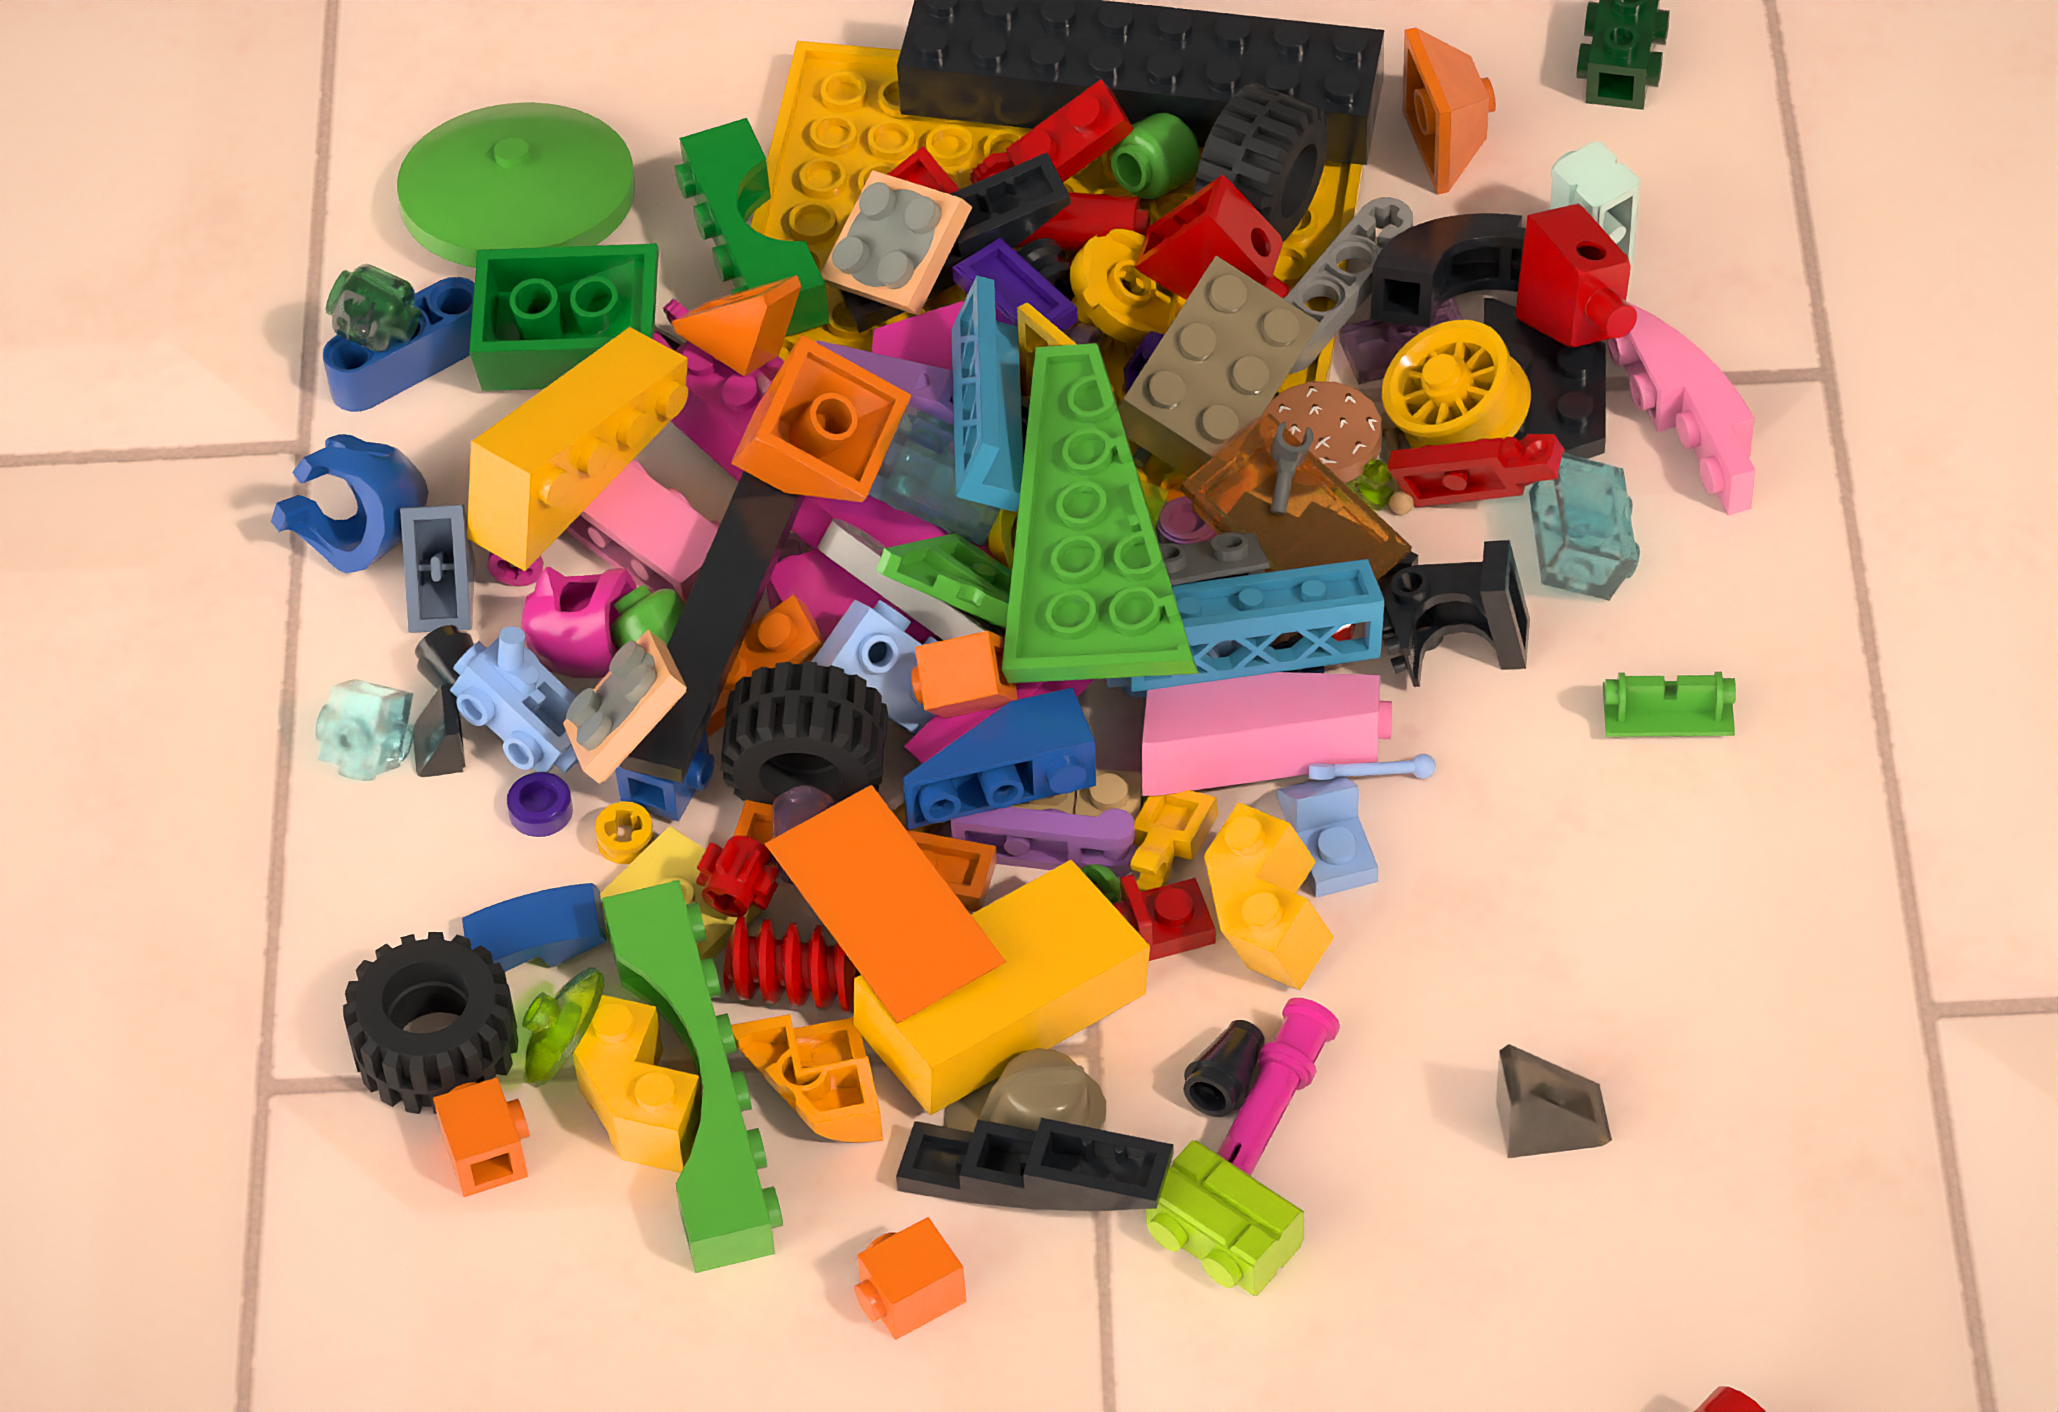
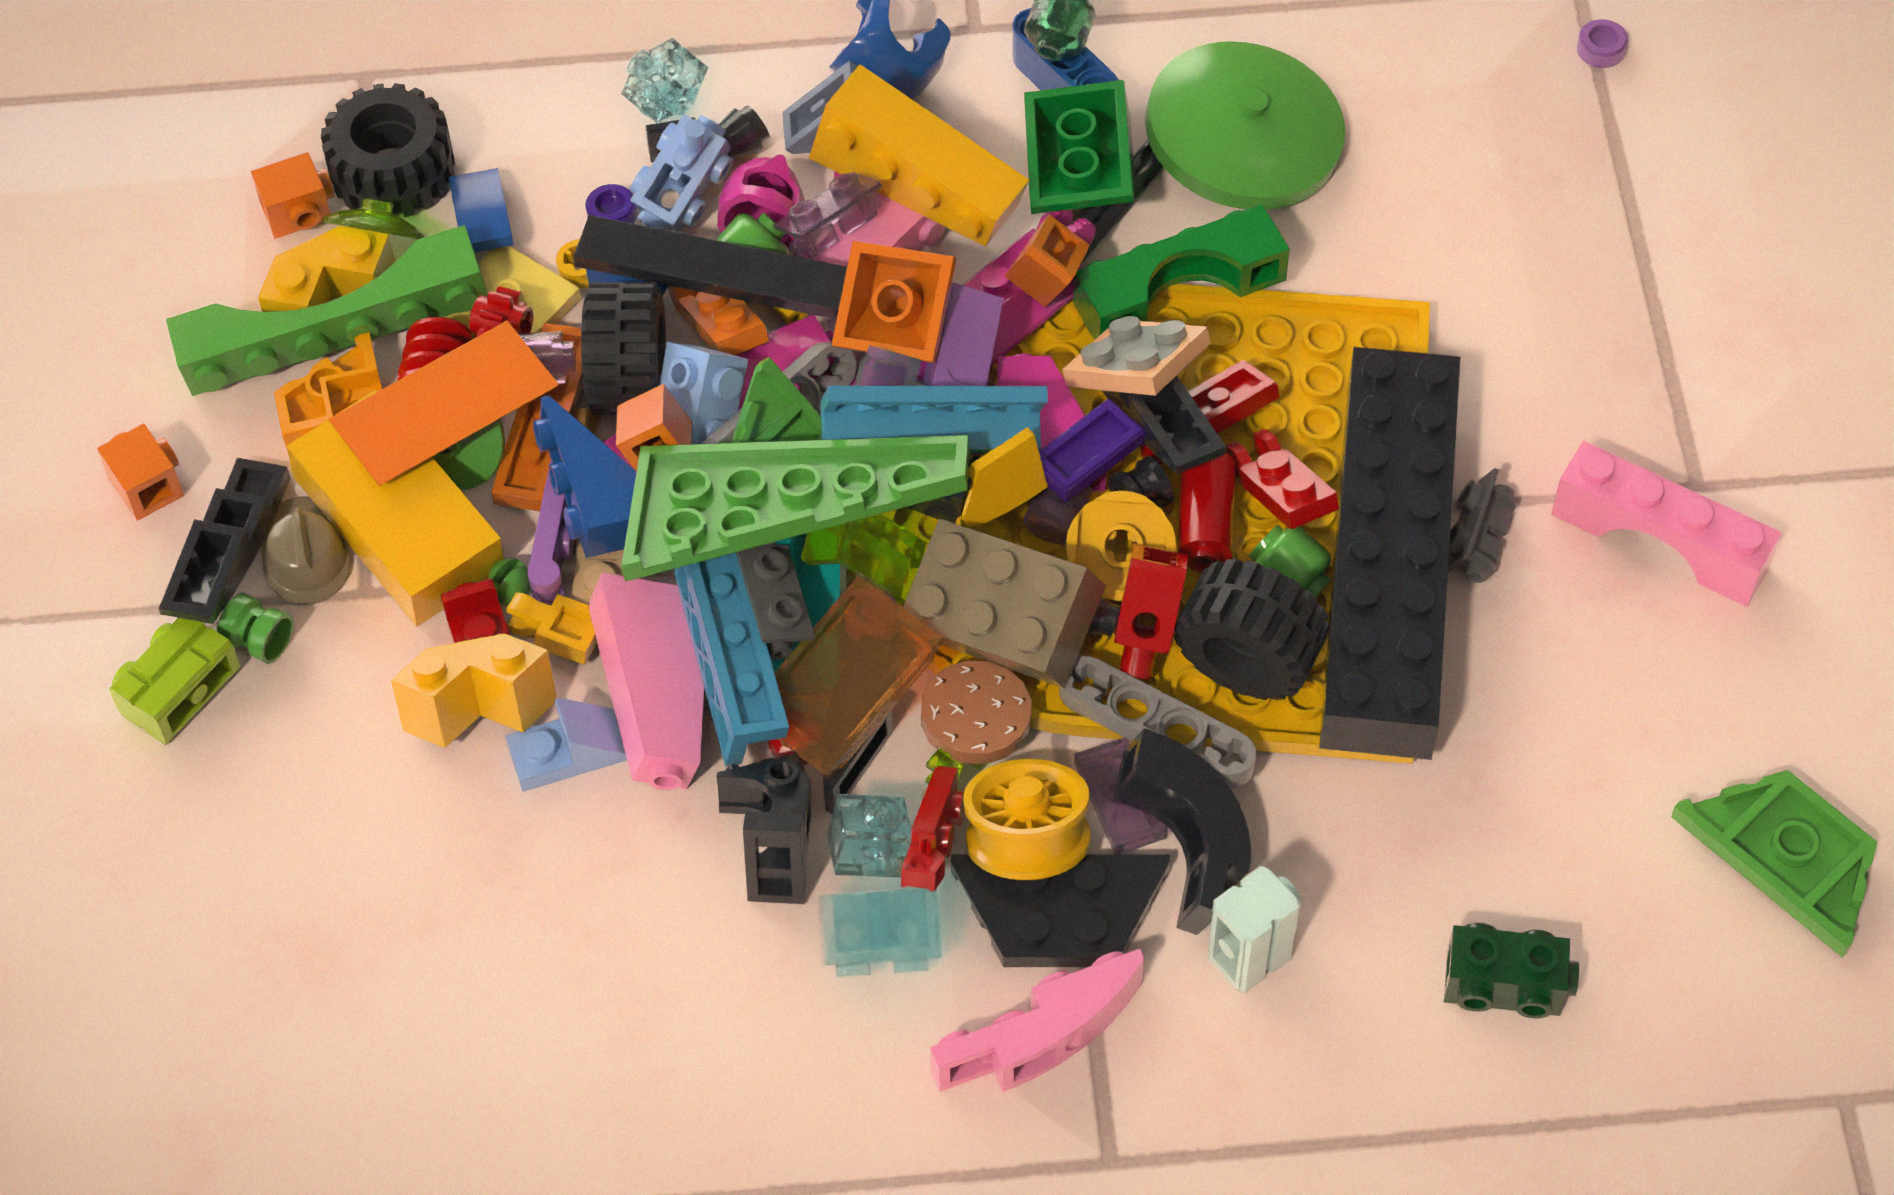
camera: 85 degrees right, 5 degrees up
(624, 705) = (638, 210): piece -> none
(635, 529) = (848, 201): none -> hinge
(1165, 1120) = (258, 629): none -> bright green wheel
(1224, 1070) = (321, 675): black cone -> none
(1284, 1068) = (318, 717): dark pink pin -> none
(1287, 459) = (884, 655): dark grey hand -> none
(1421, 766) = (611, 732): light blue hinge -> none
(1444, 105) = (1387, 804): orange slope -> none
(1463, 520) = (869, 835): none -> clear light blue brick
(1547, 1106) = (261, 906): clear smoke slope -> none
(1573, 279) = (1142, 900): red torso -> none
(1669, 708) = (693, 1009): bright green hinge -> none

